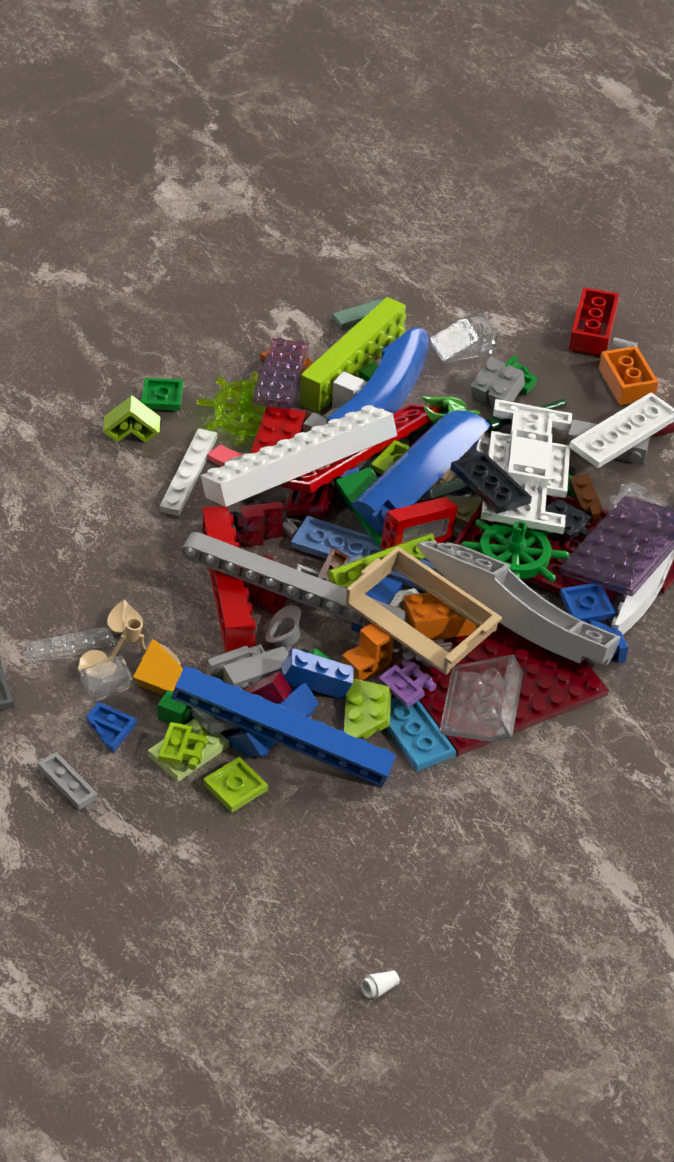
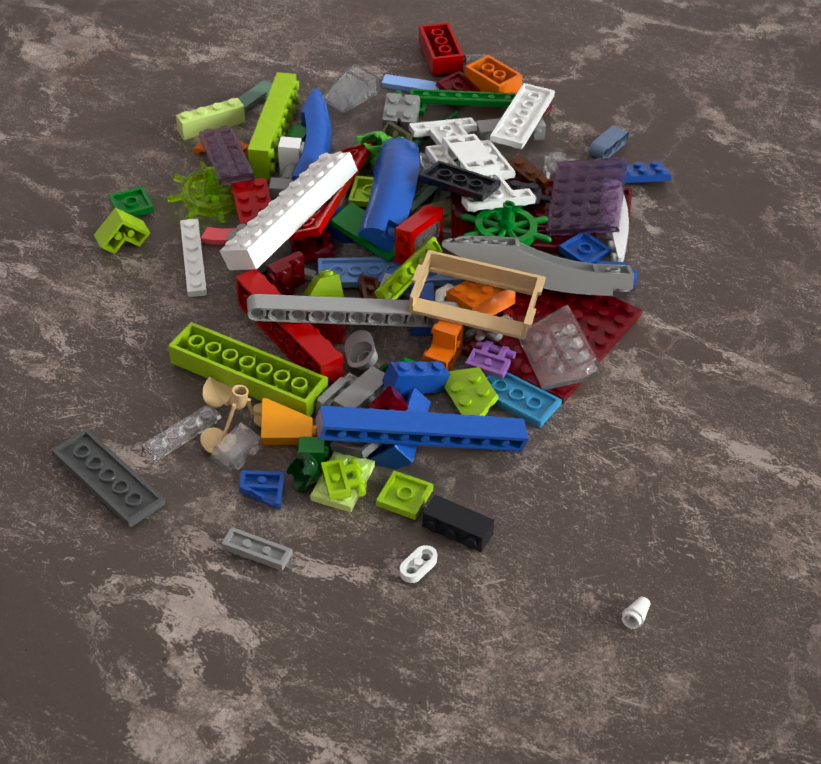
camera: 25 degrees left, 0 degrees up
(156, 724) = (304, 470): none -> dark green hair
(163, 605) = (241, 364): none -> lime brick
(203, 854) = (416, 564): none -> white plate
(266, 831) = (458, 523): none -> black brick
(290, 548) = (325, 284): none -> lime slope
(297, 326) = (210, 117): none -> yellowish green brick
(475, 402) = (394, 131): none -> olive slope
(540, 355) = (405, 83): none -> light blue tile
(575, 386) = (466, 98): none -> green tile
(584, 374) = (456, 82): none -> dark red plate

